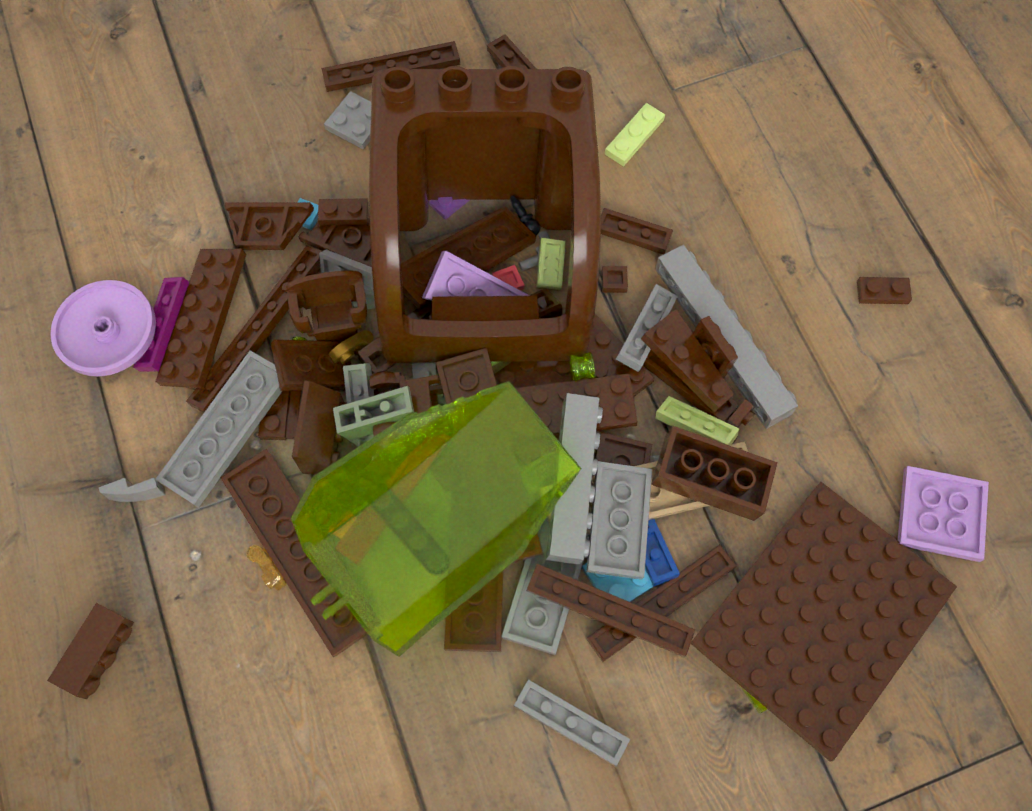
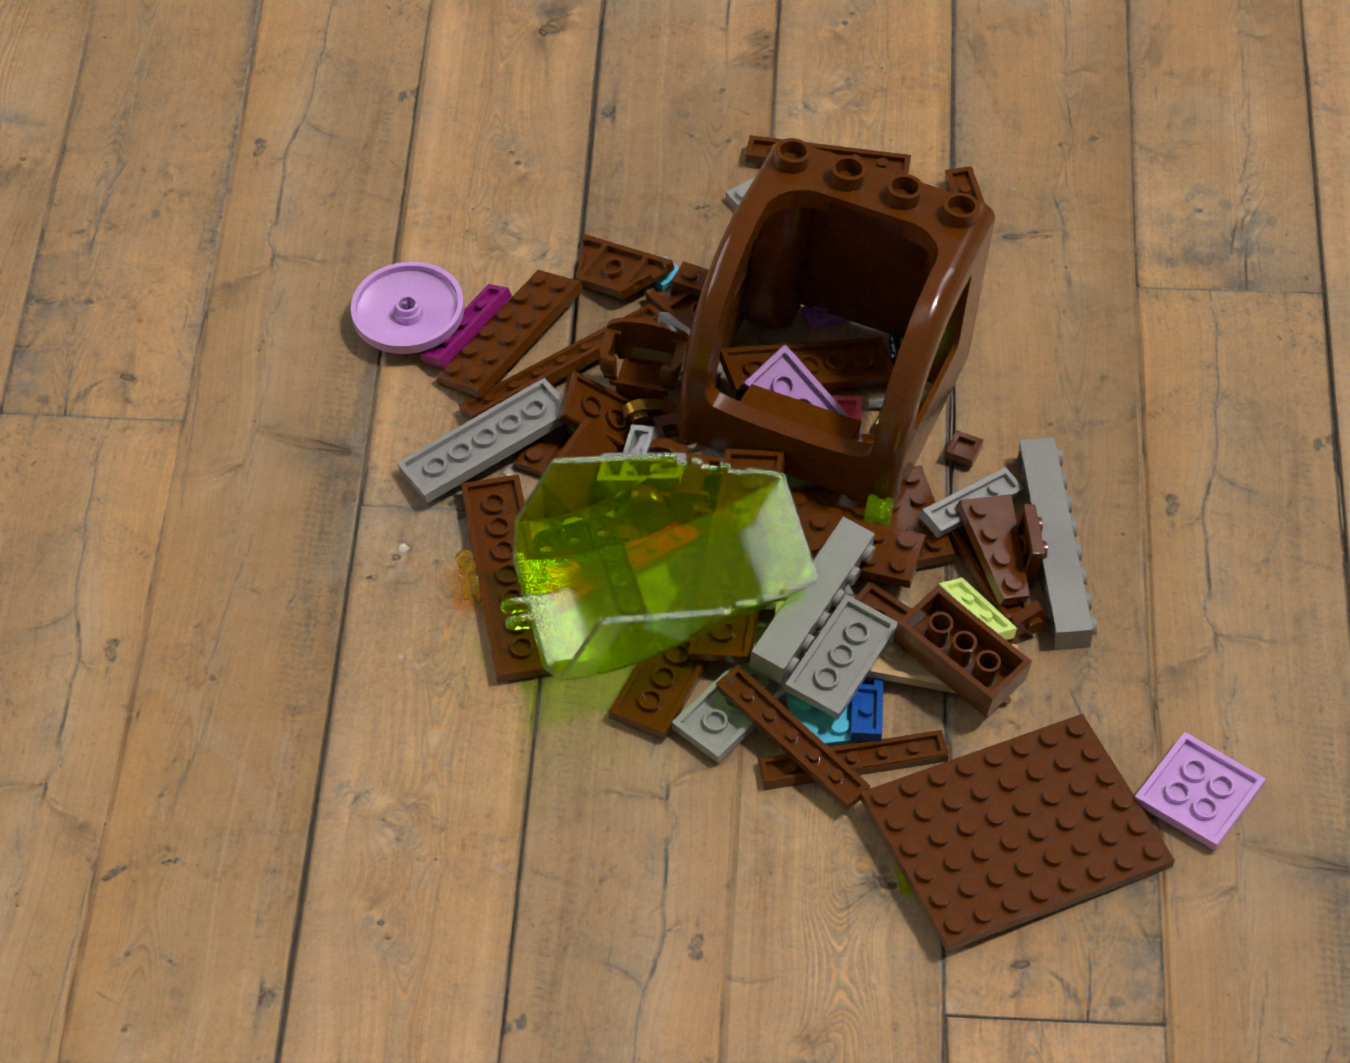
camera: 25 degrees right, 15 degrees down
(91, 652) = (269, 587): reddish brown brick -> none
(125, 491) = (360, 463): light grey slope -> none
(572, 723) = (704, 823): light grey plate -> none
(634, 134) = (1066, 316): yellowish green plate -> none
(635, 231) = (1010, 409): reddish brown plate -> none
(884, 290) = (1263, 565): reddish brown plate -> none

